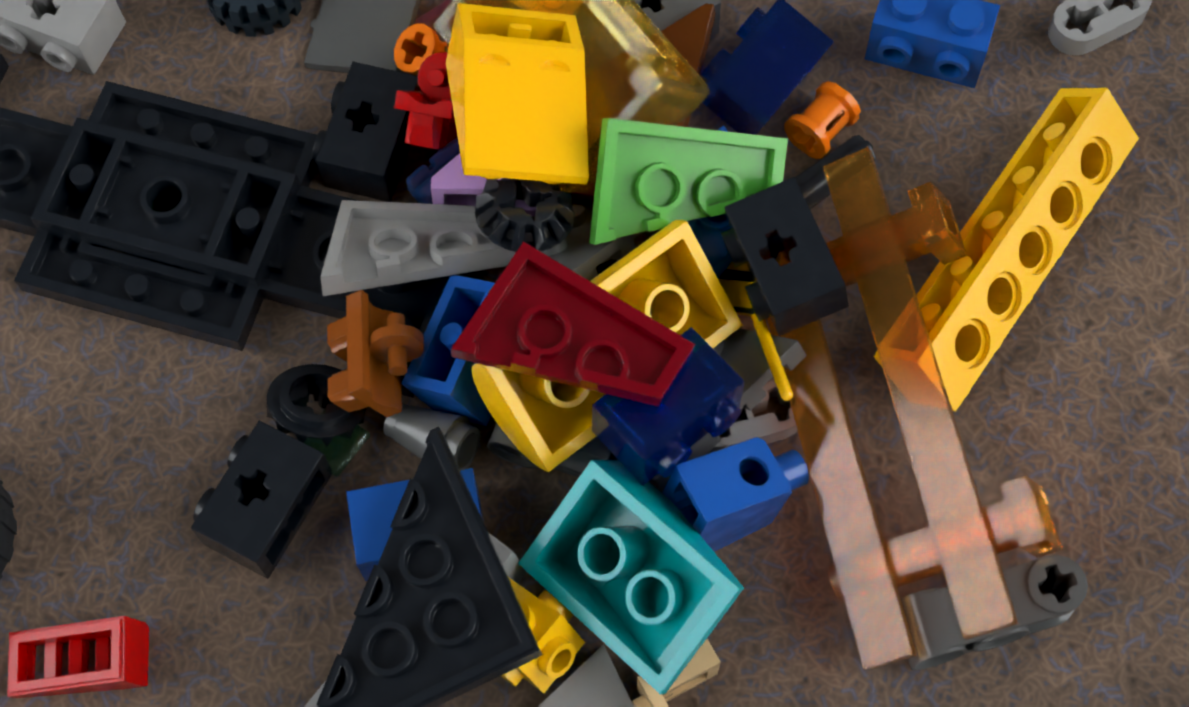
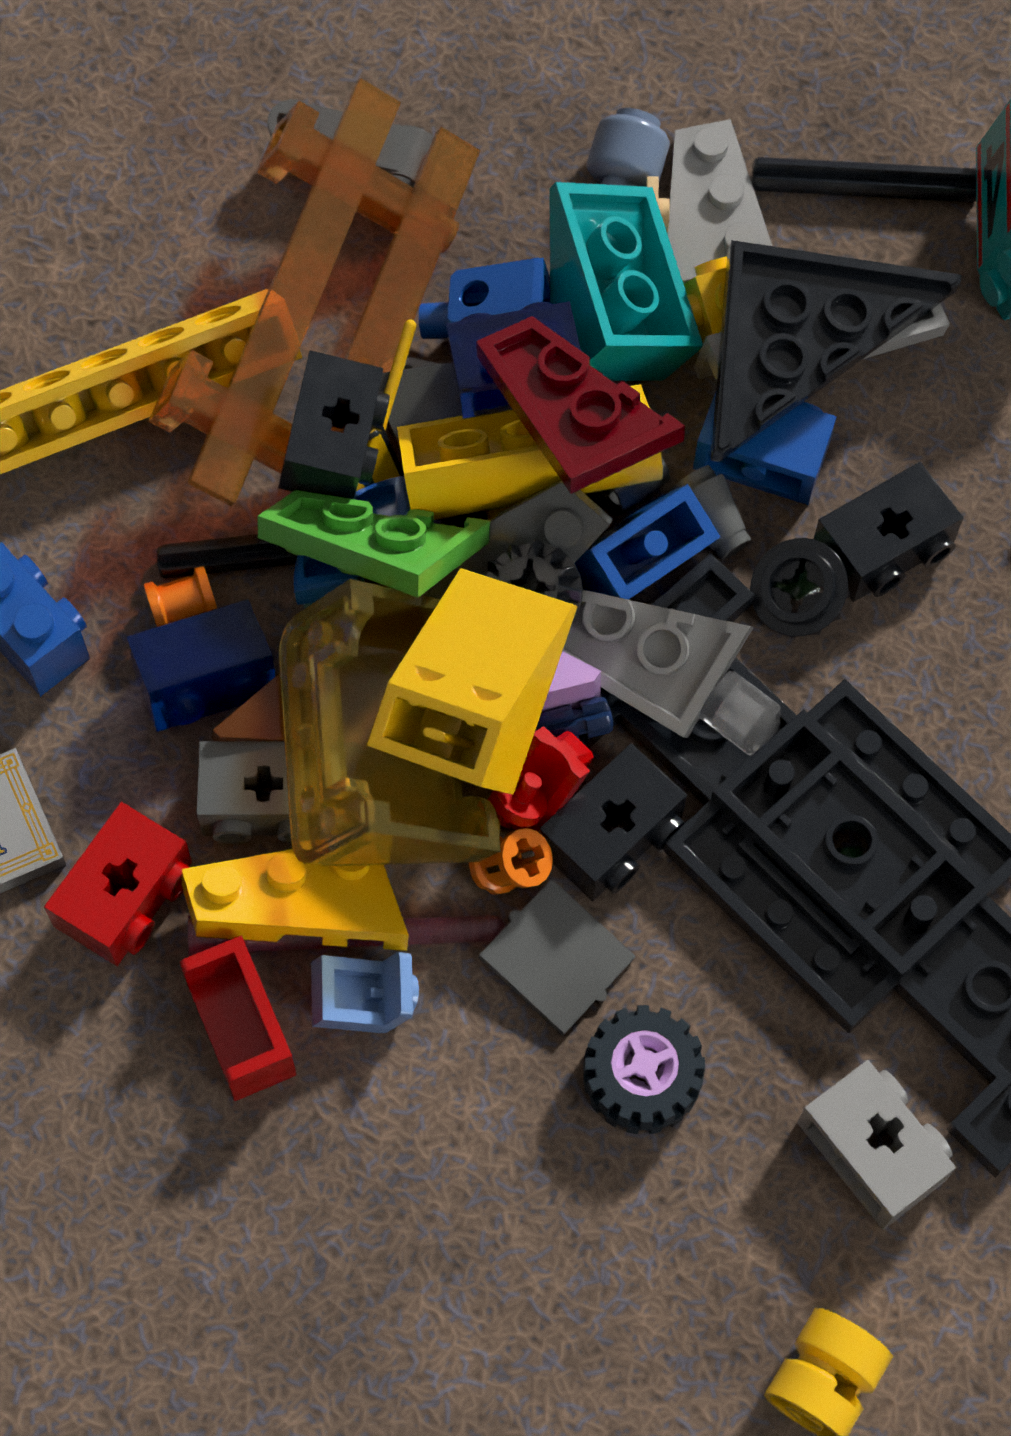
camera: 155 degrees left, 0 degrees up
(298, 243) = (741, 713): none -> clear brick
(376, 354) = (727, 563): dark orange hips -> none

